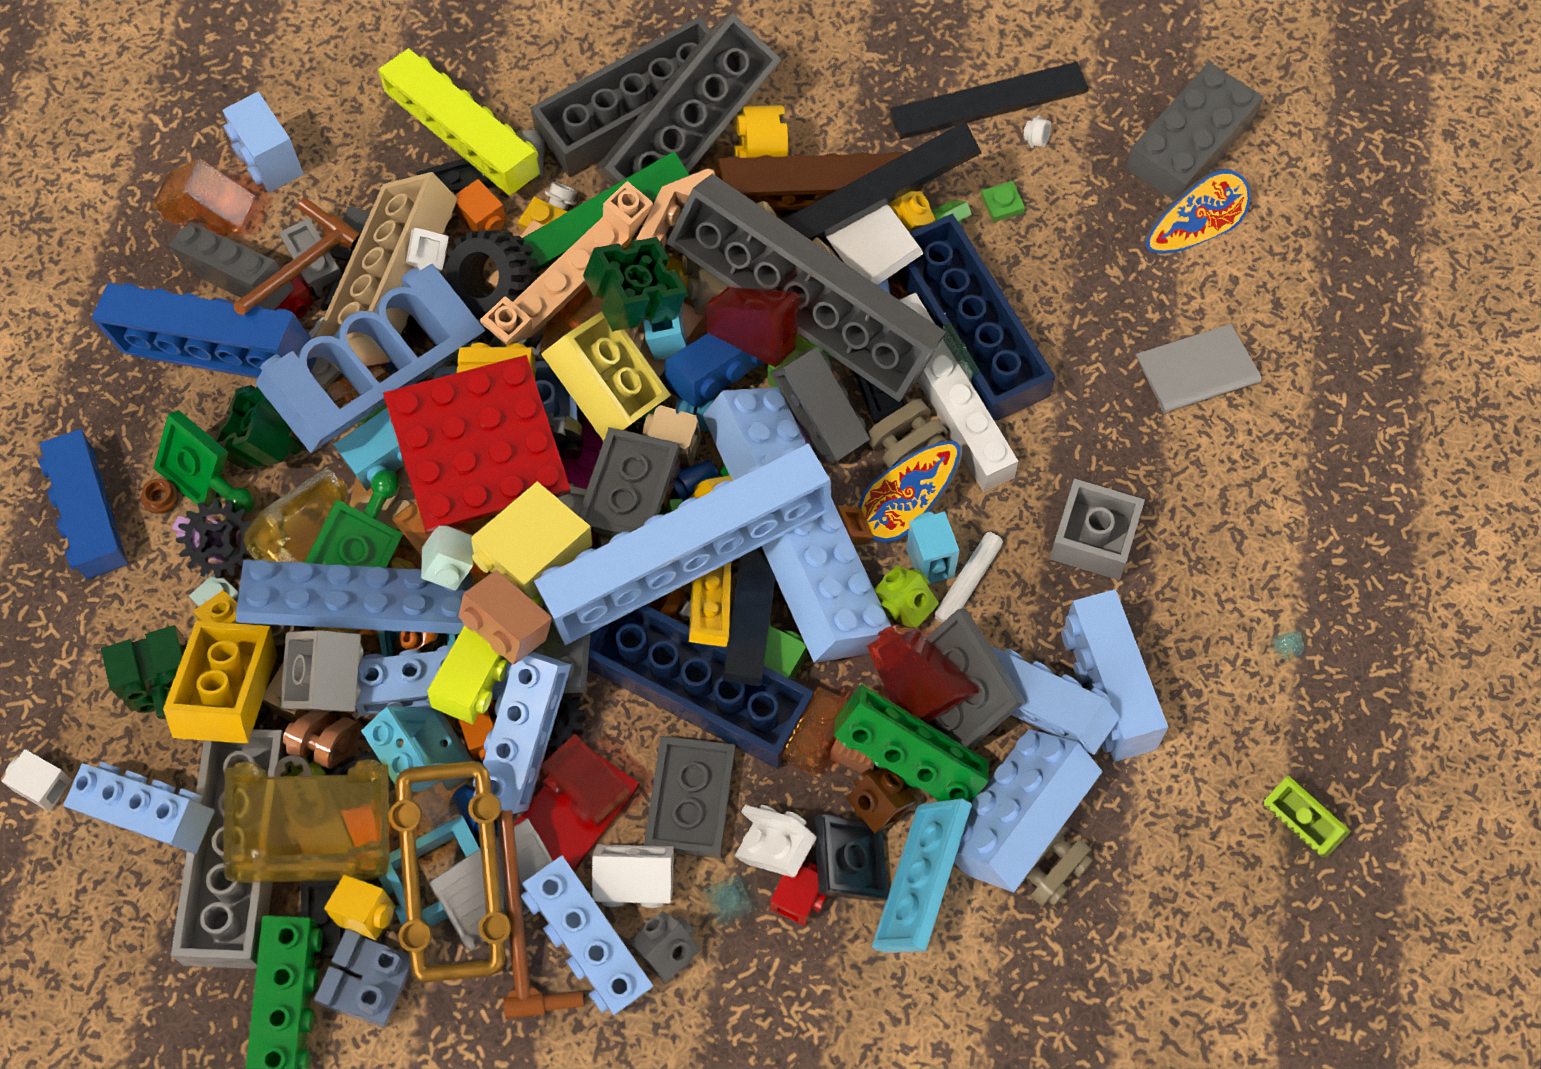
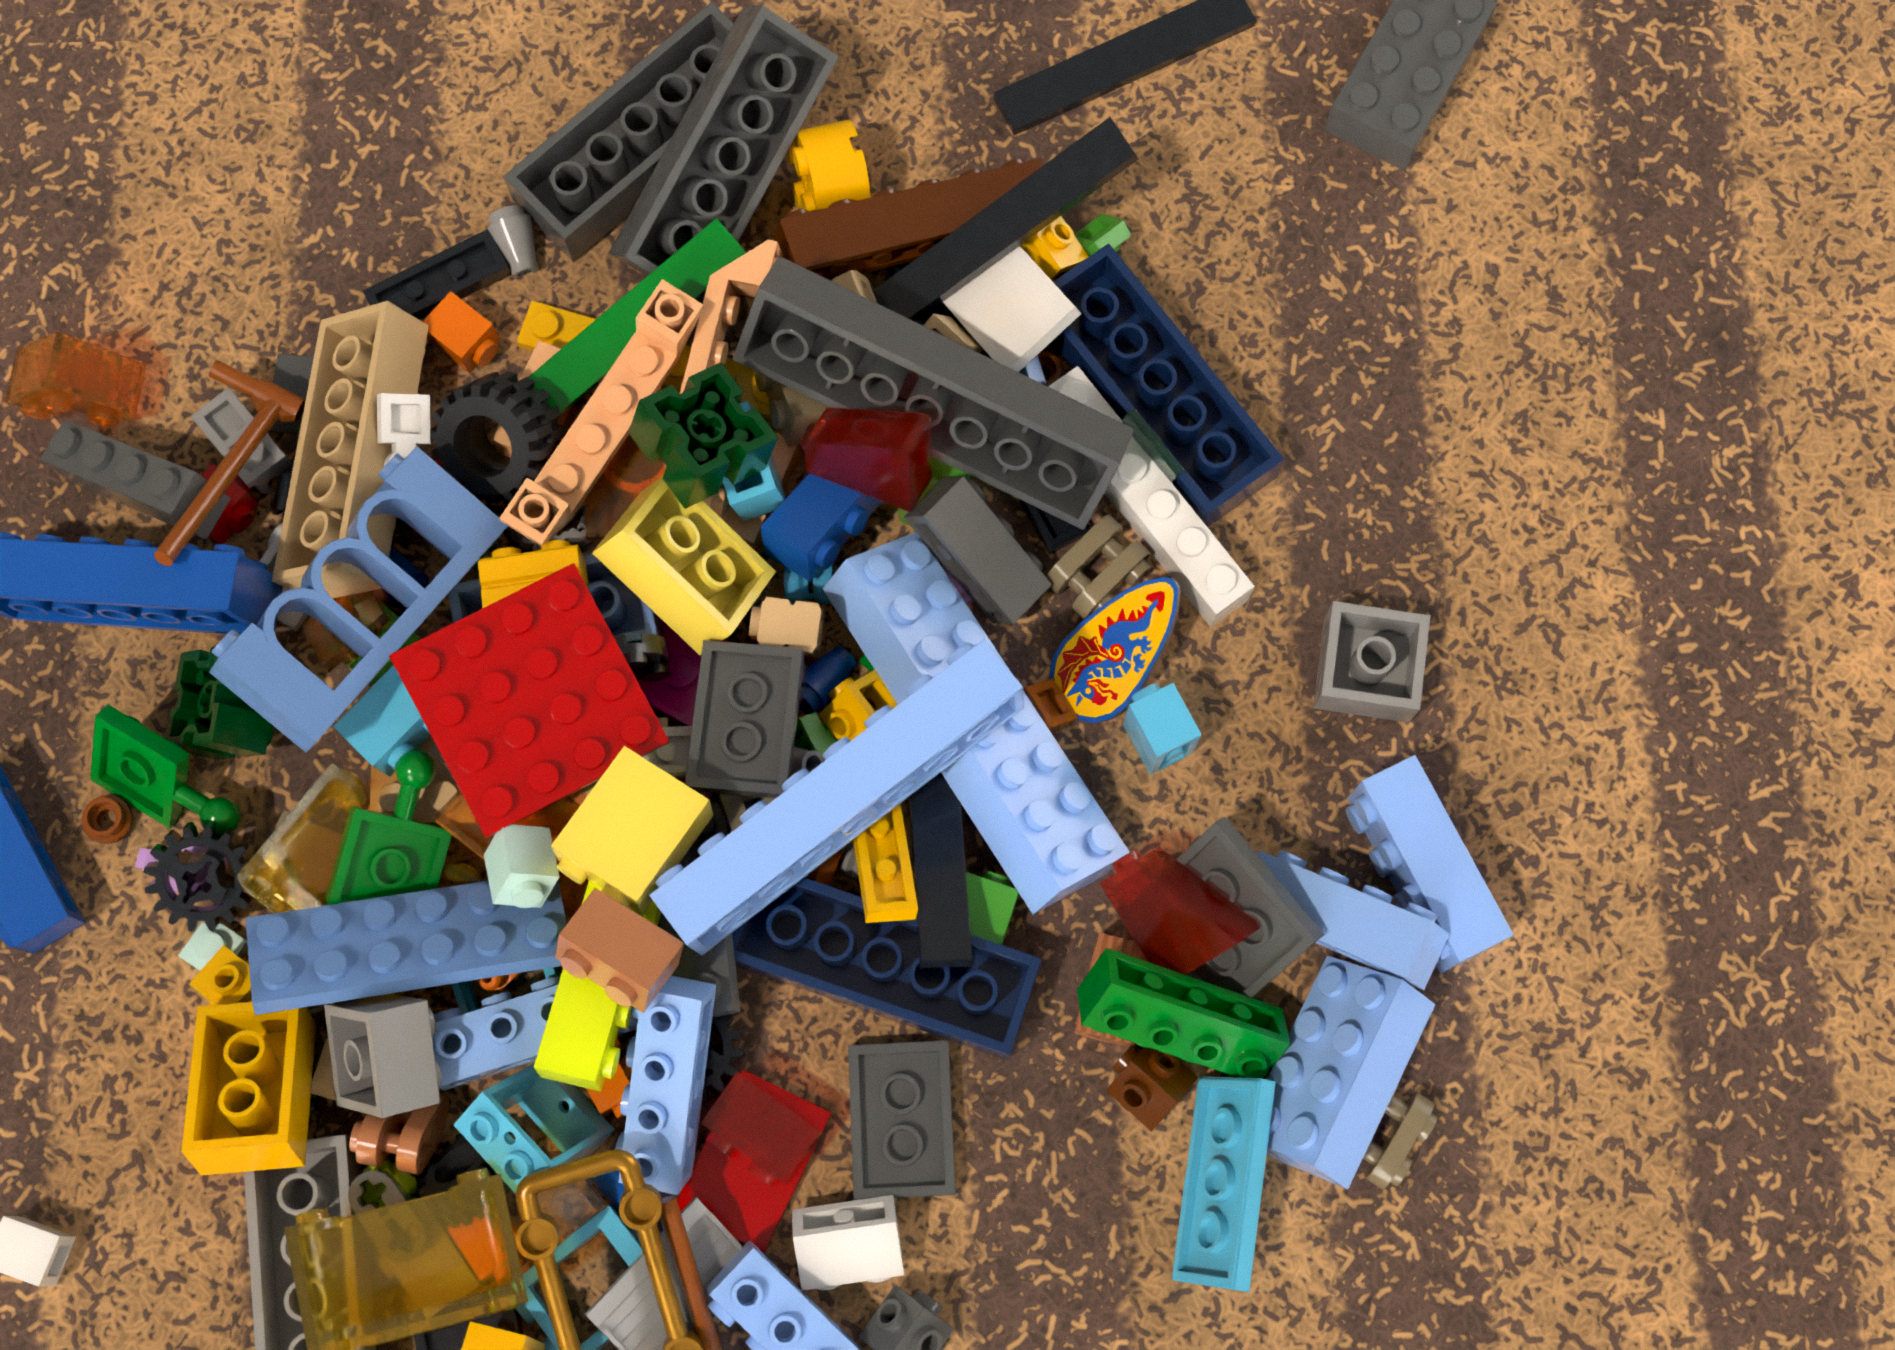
camera: 10 degrees left, 10 degrees up
(140, 807) = (177, 1273): light blue brick -> none
(145, 669) = (143, 1080): dark green brick -> none
(261, 143) = (138, 285): light blue brick -> none
(460, 121) = (408, 208): neon yellow brick -> none
(561, 195) = (569, 293): white plate -> none
(728, 900) = (976, 1250): clear light blue plate -> none
(775, 840) = (1025, 1169): white bracket -> none
(798, 896) = (1068, 1226): red brick -> none
(814, 733) = (1051, 1005): clear orange brick -> none
(849, 859) = (1125, 1173): black plate -> none
(906, 596) = (1136, 798): lime brick -> none
(969, 576) = (1212, 754): white axle -> none
(1002, 201) = (1168, 206): bright green plate -> none
(1037, 131) = (1198, 96): white plate -> none
(1198, 368) = (1465, 405): light grey piece -> none
(1201, 212) = (1437, 184): shield -> none
(1288, 642) = (1641, 774): clear light blue hinge -> none
(1306, 817) = (1702, 1014): lime brick -> none

